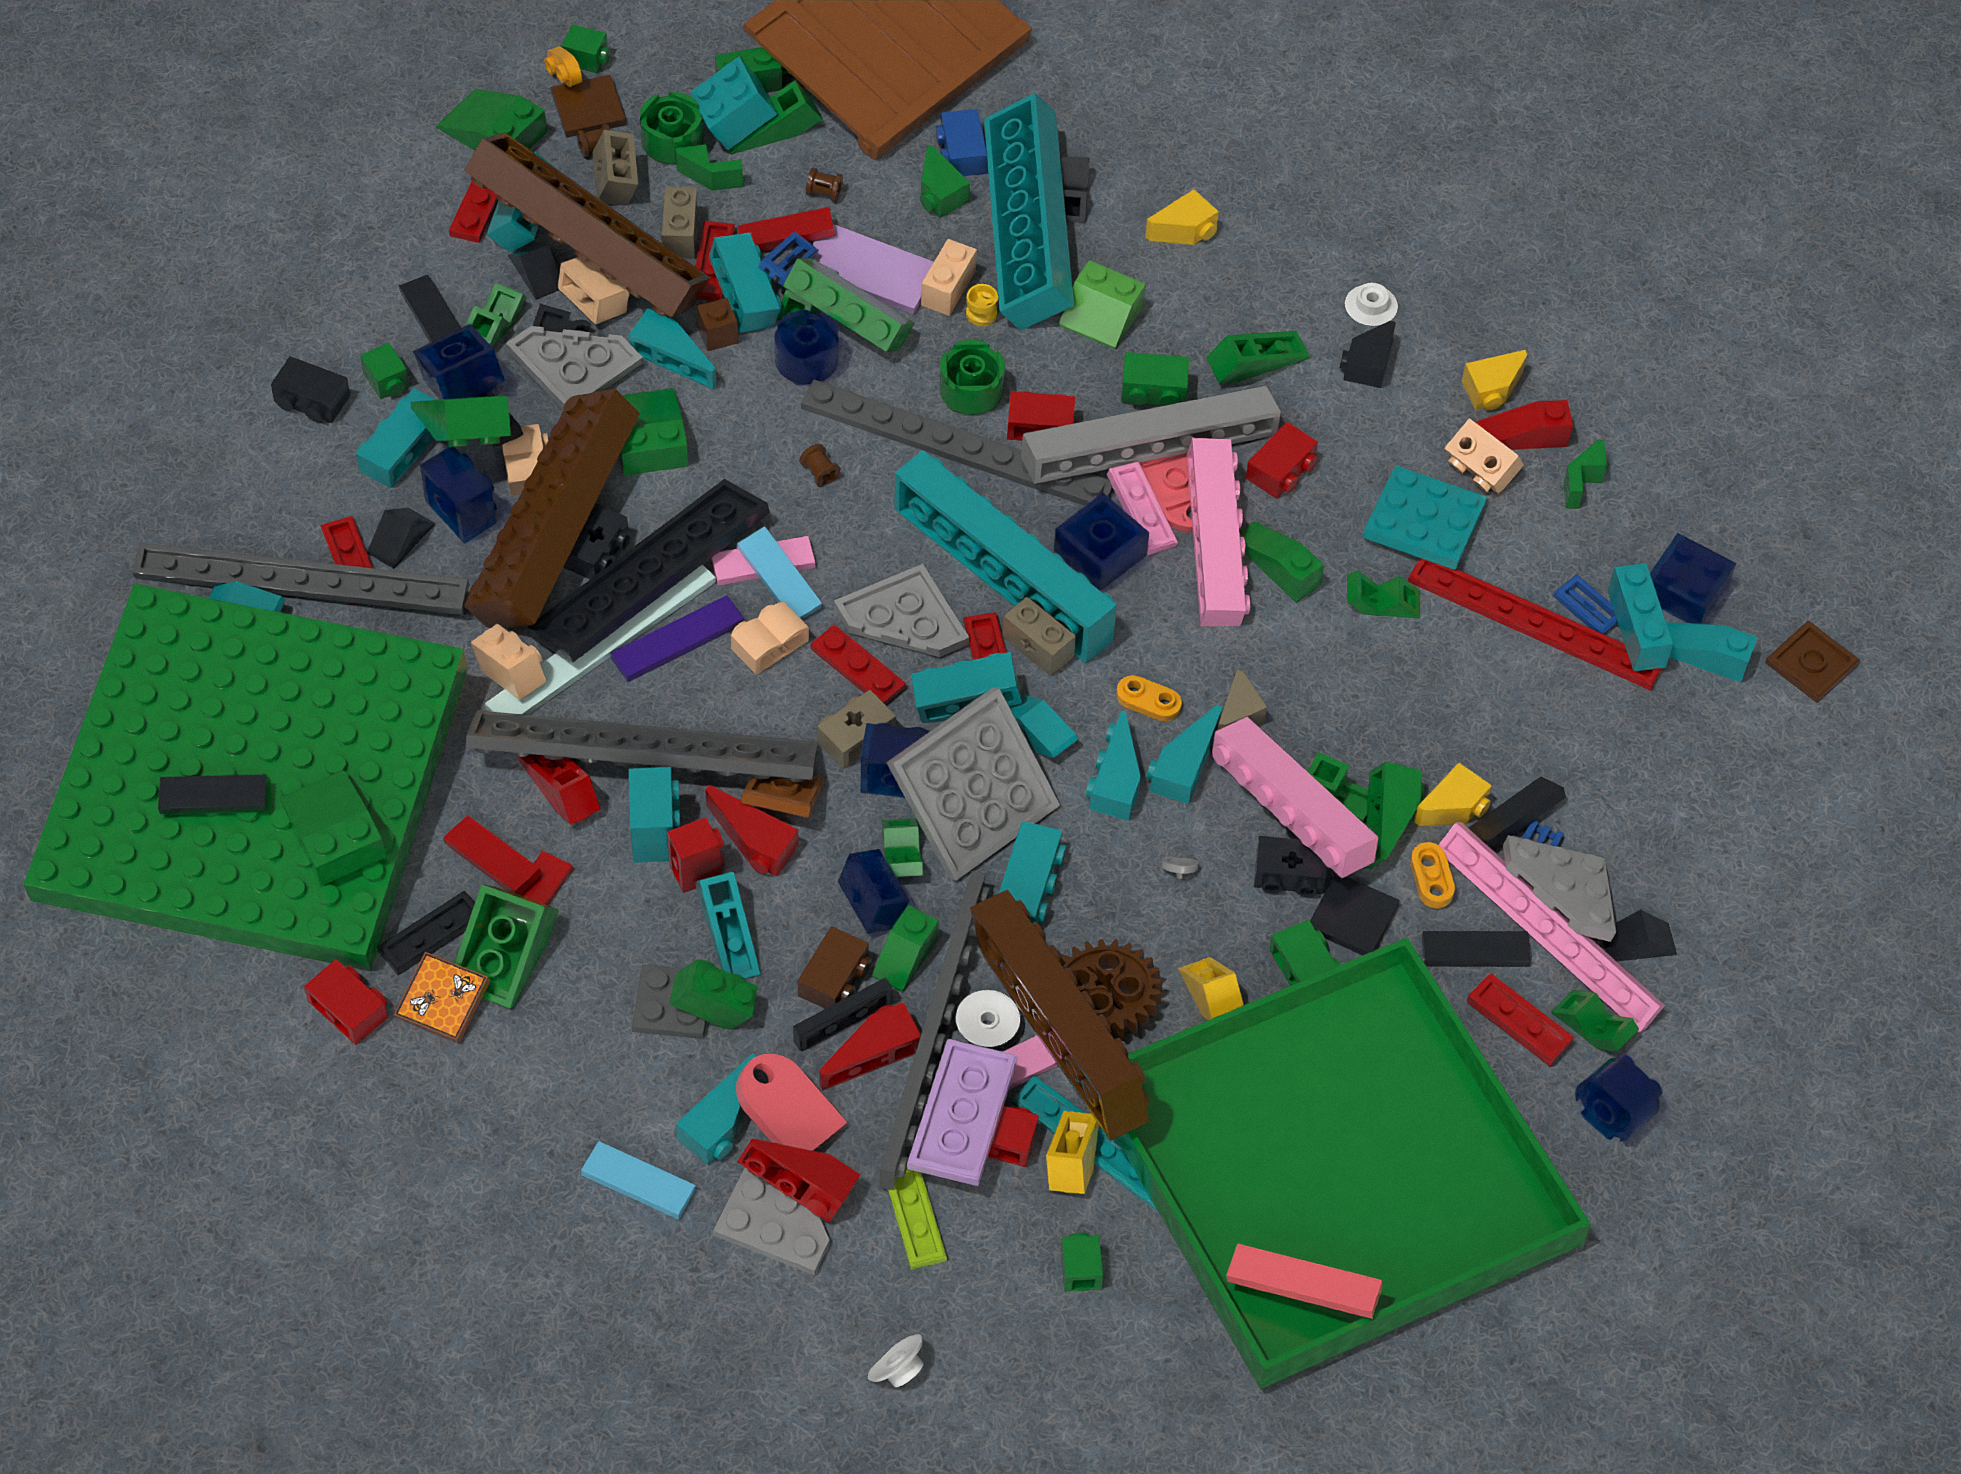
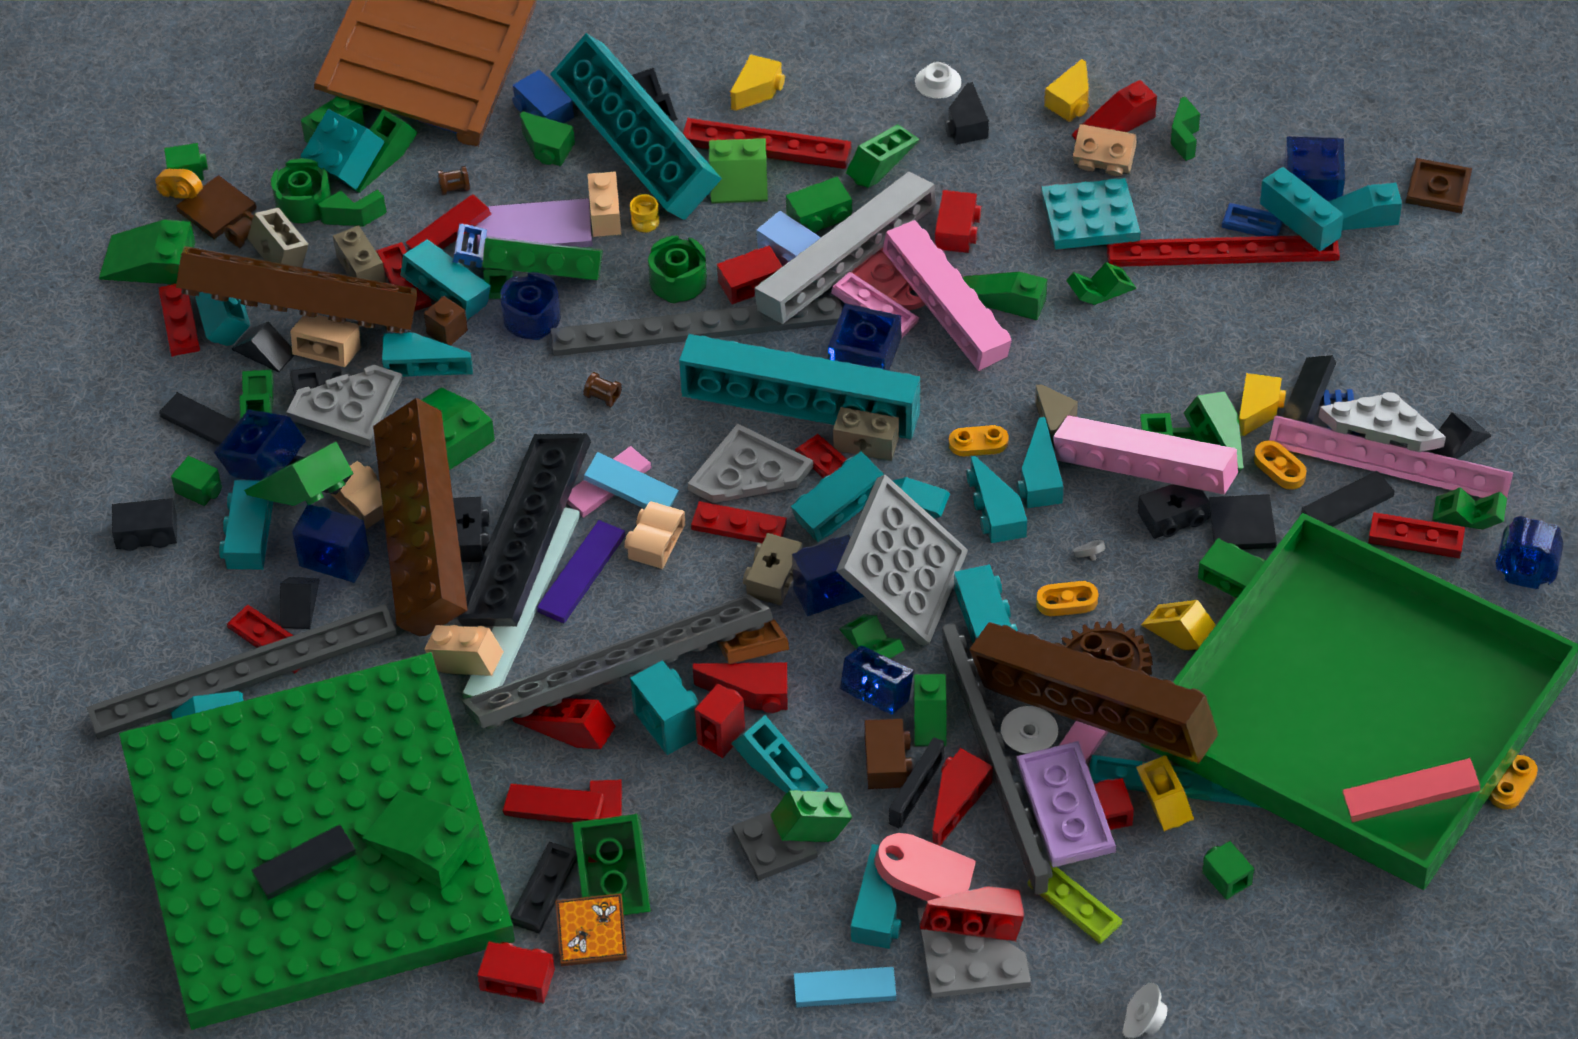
camera: 25 degrees left, 5 degrees down
(1098, 394) = (785, 237): none -> light blue brick
(1122, 903) = (1066, 598): none -> light orange plate
(1160, 293) = (779, 144): none -> red plate
(1438, 1327) = (1516, 781): none -> light orange plate

